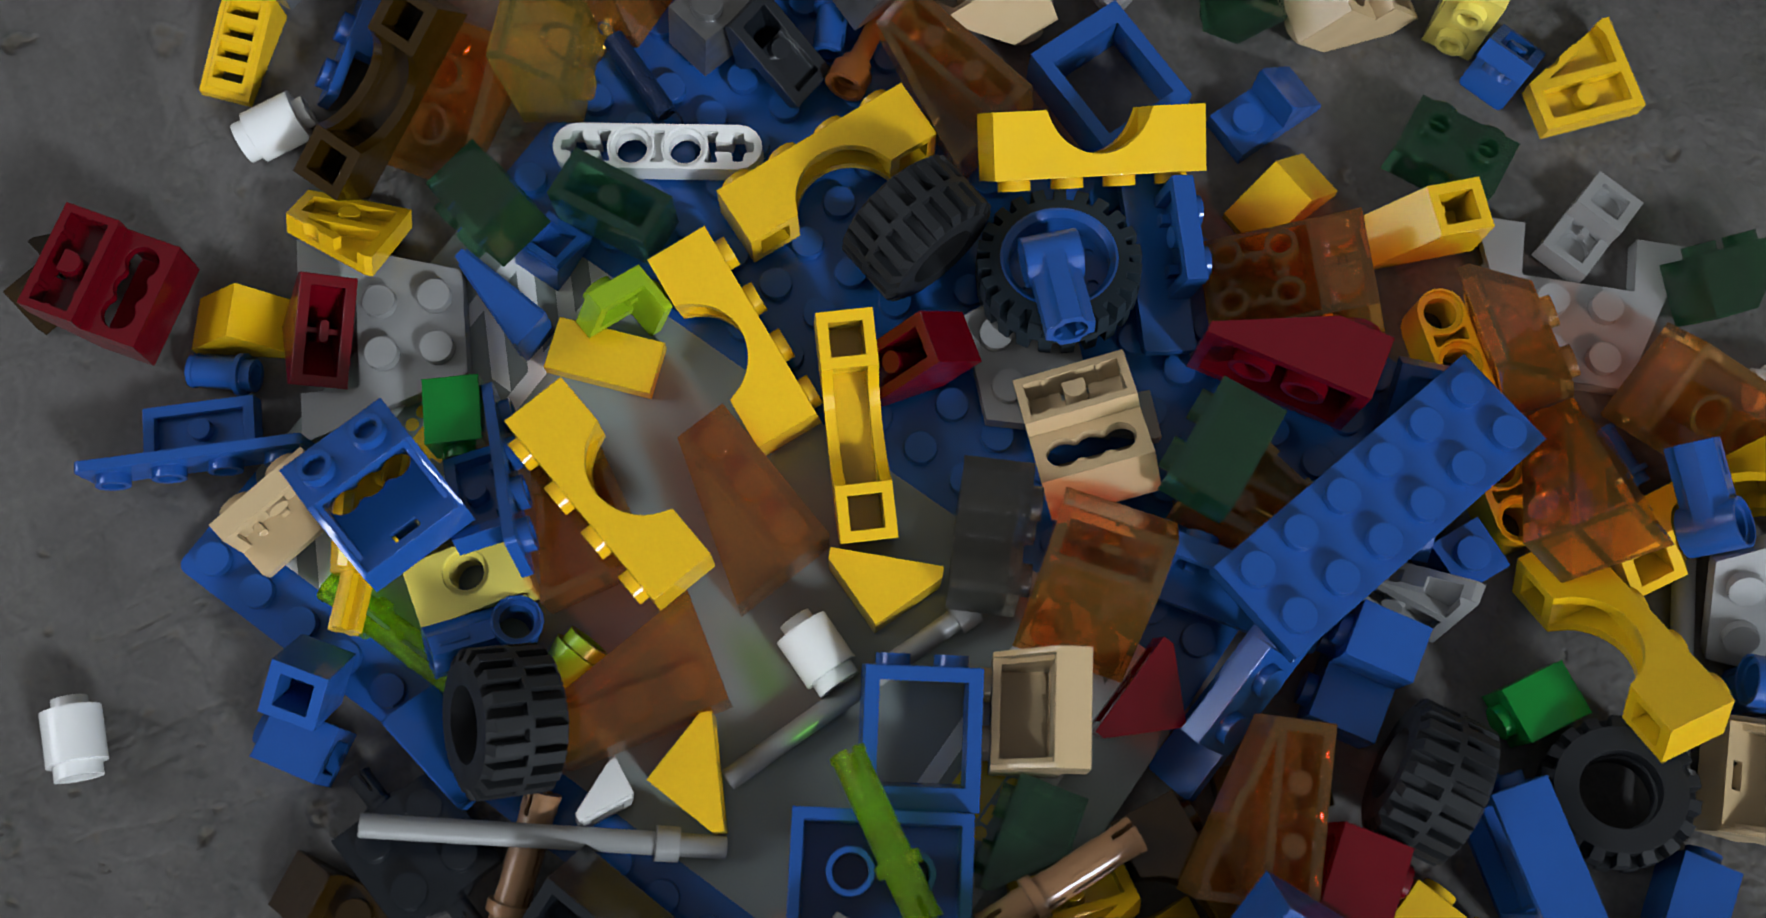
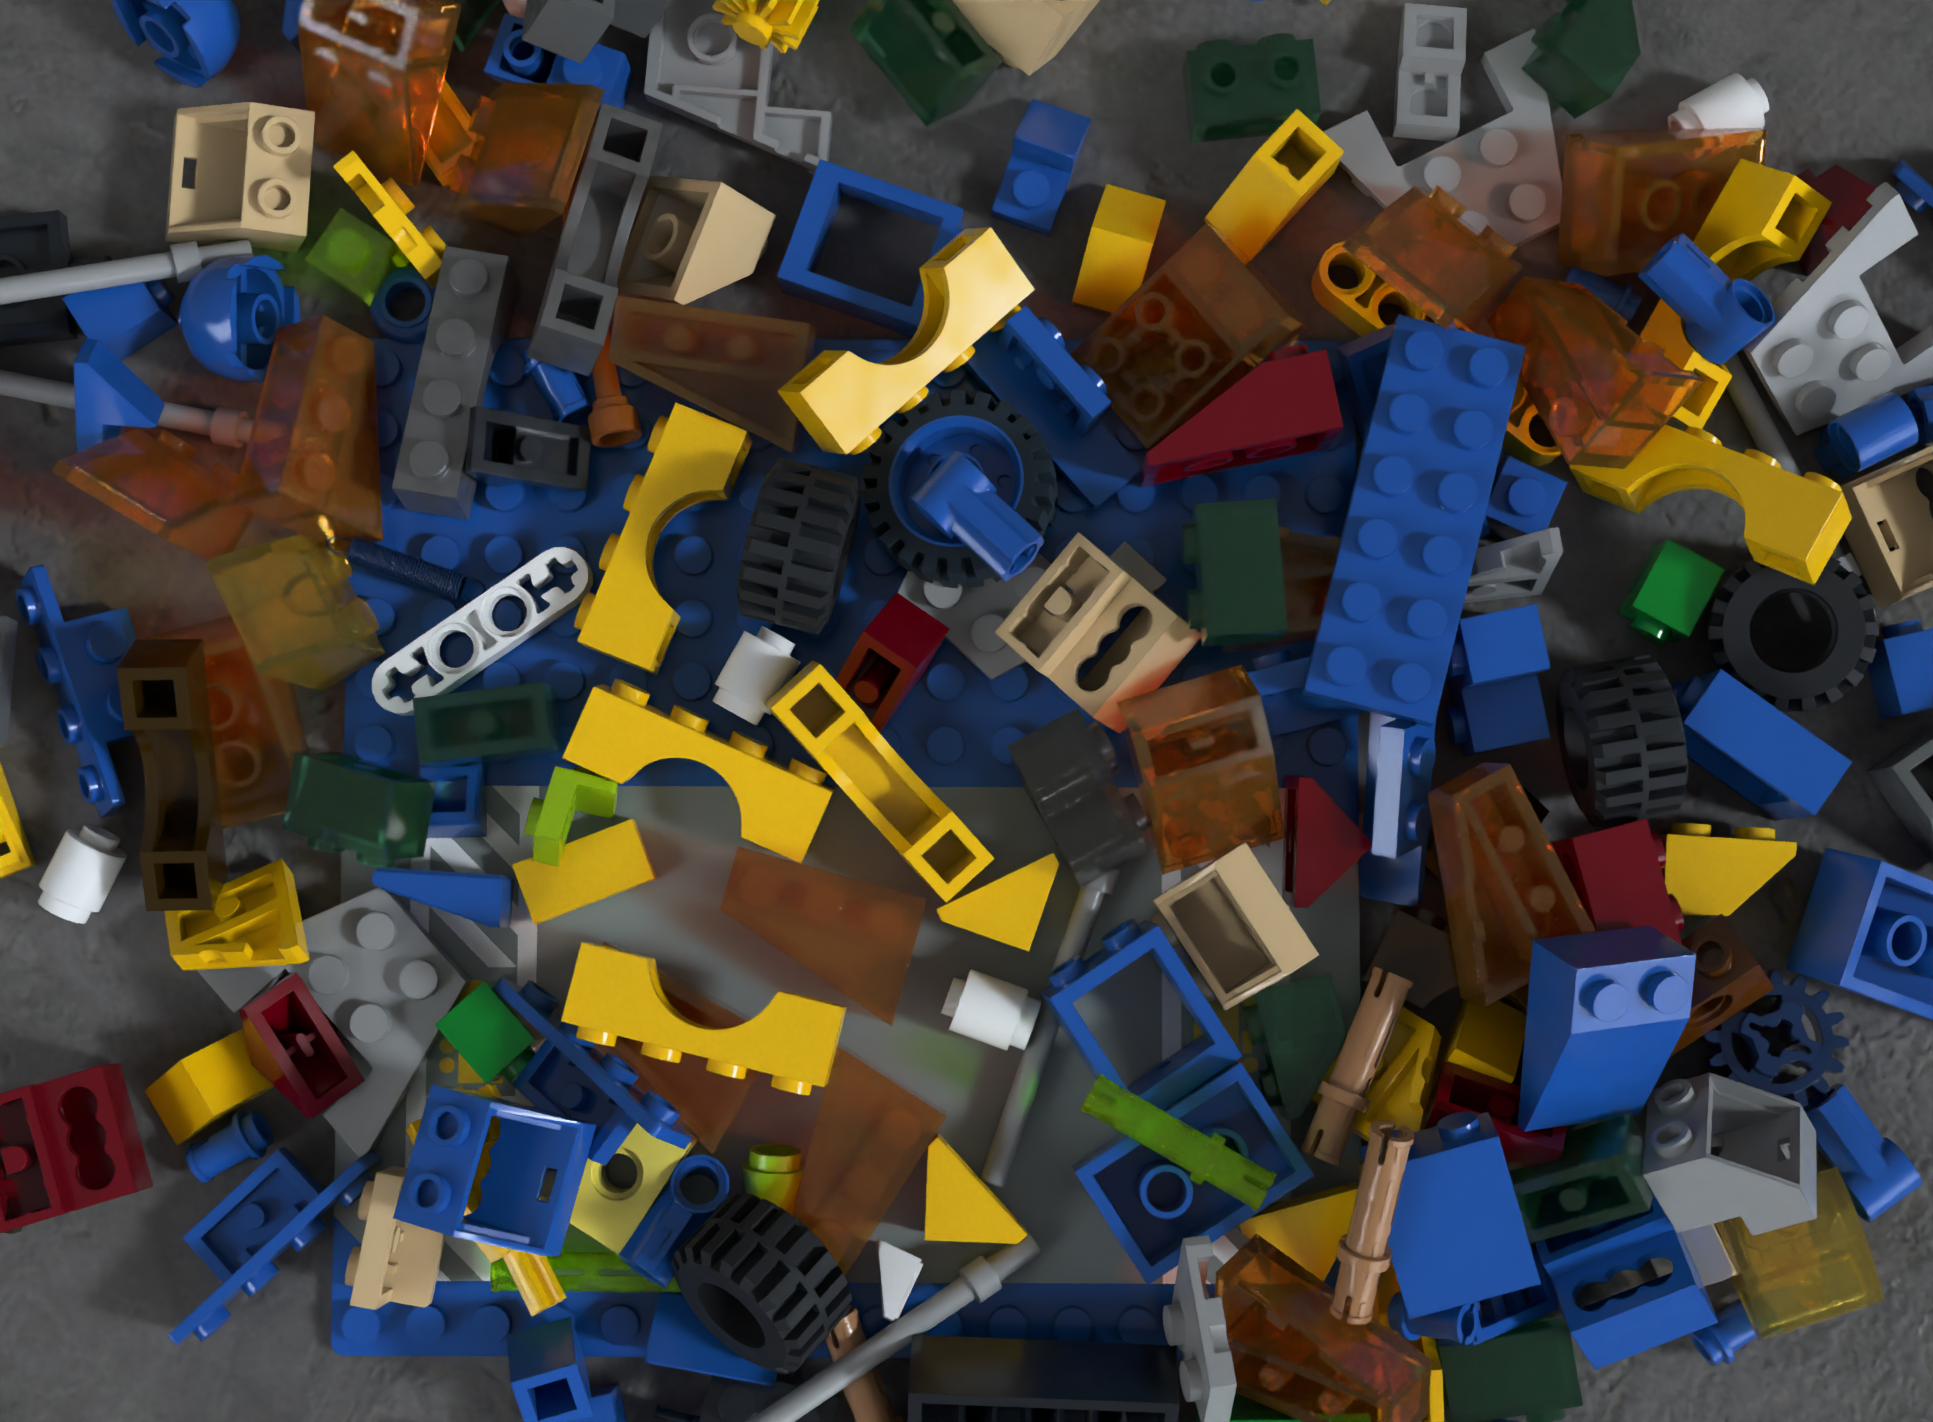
camera: 30 degrees left, 10 degrees up
(820, 294) = (755, 673): none -> white brick

